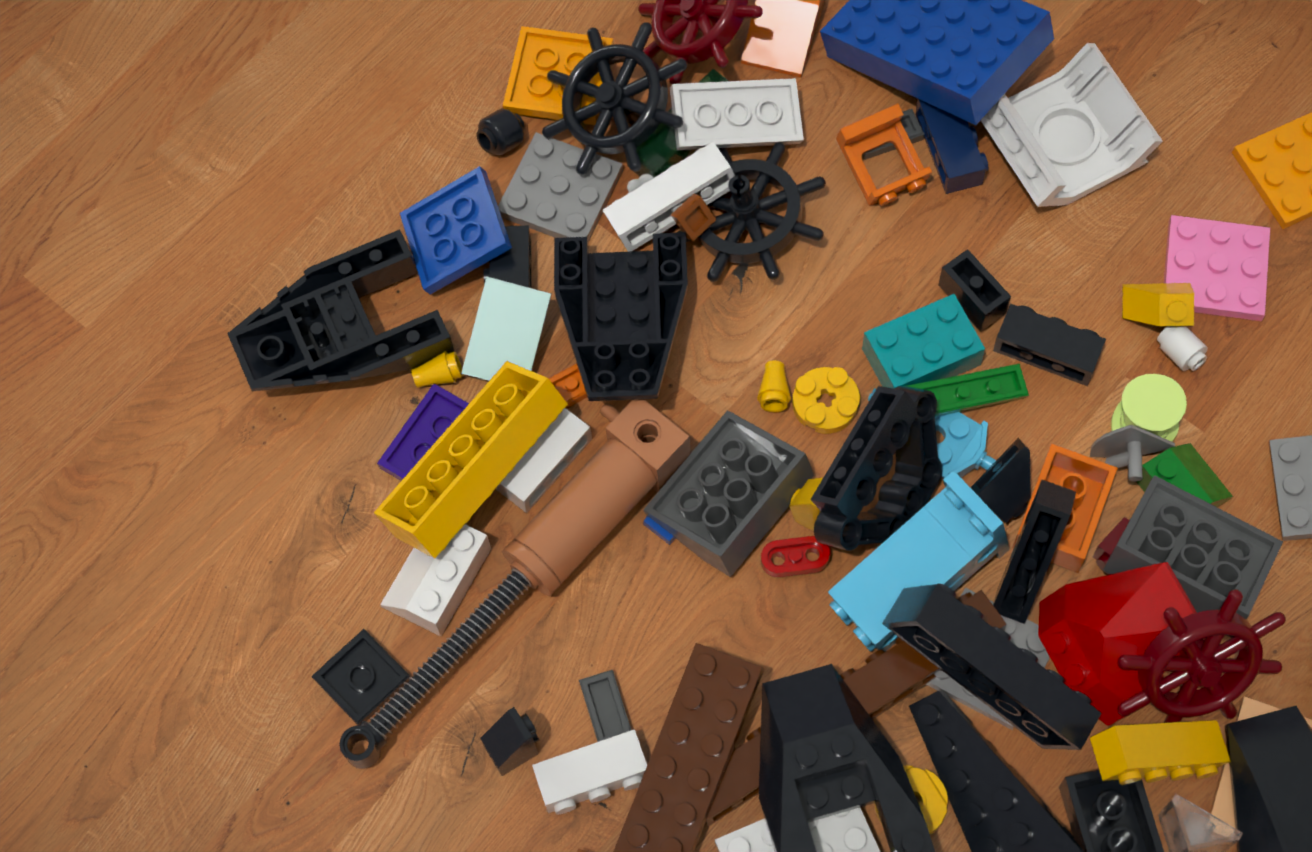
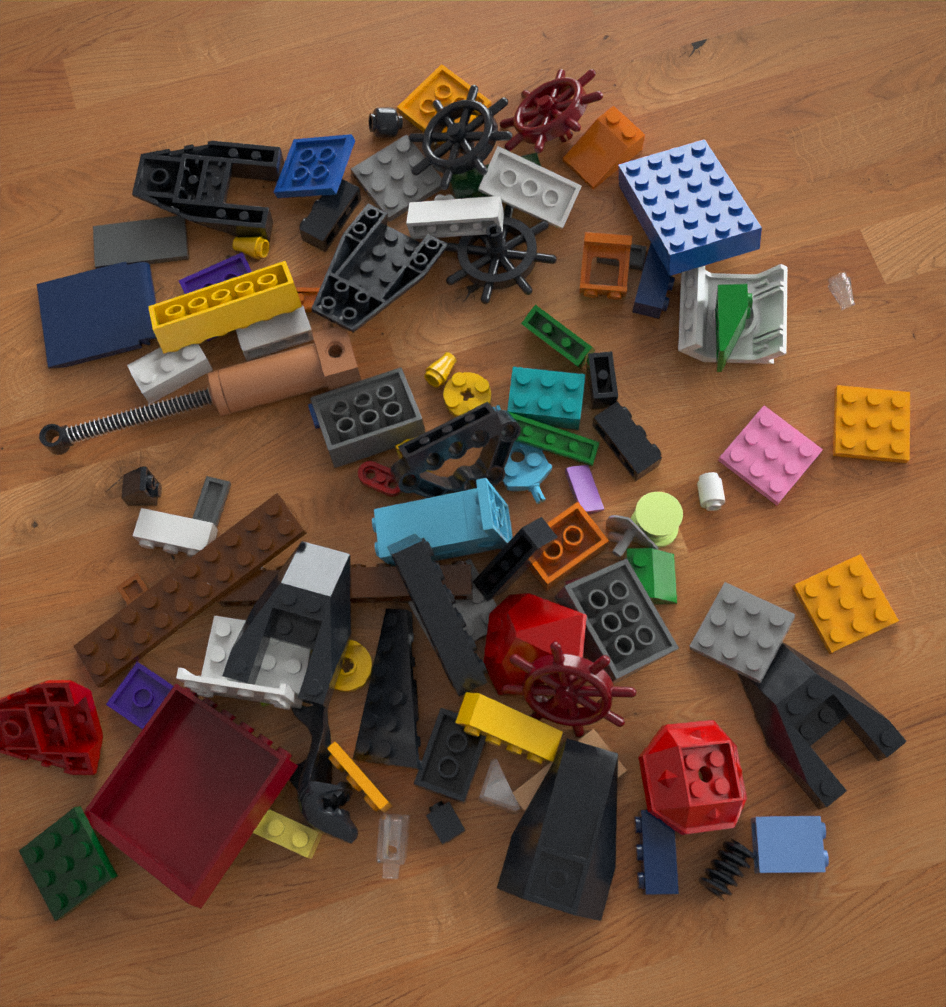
camera: 30 degrees right, 5 degrees up
(290, 445) = (141, 241): none -> dark grey tile
(299, 563) = (96, 313): none -> dark blue piece
(361, 677) = (88, 399): black tile -> none
(505, 328) = (303, 243): light aqua tile -> none
(693, 217) = (458, 237): dark orange plate -> none
(889, 268) = (557, 336): none -> green brick
(1007, 482) = (534, 506): black slope -> none
(1036, 428) = (584, 488): none -> medium lavender slope
(1072, 136) = (731, 311): none -> green slope
(1159, 303) = (713, 456): yellow slope -> none
(1165, 37) = (841, 289): none -> clear cone

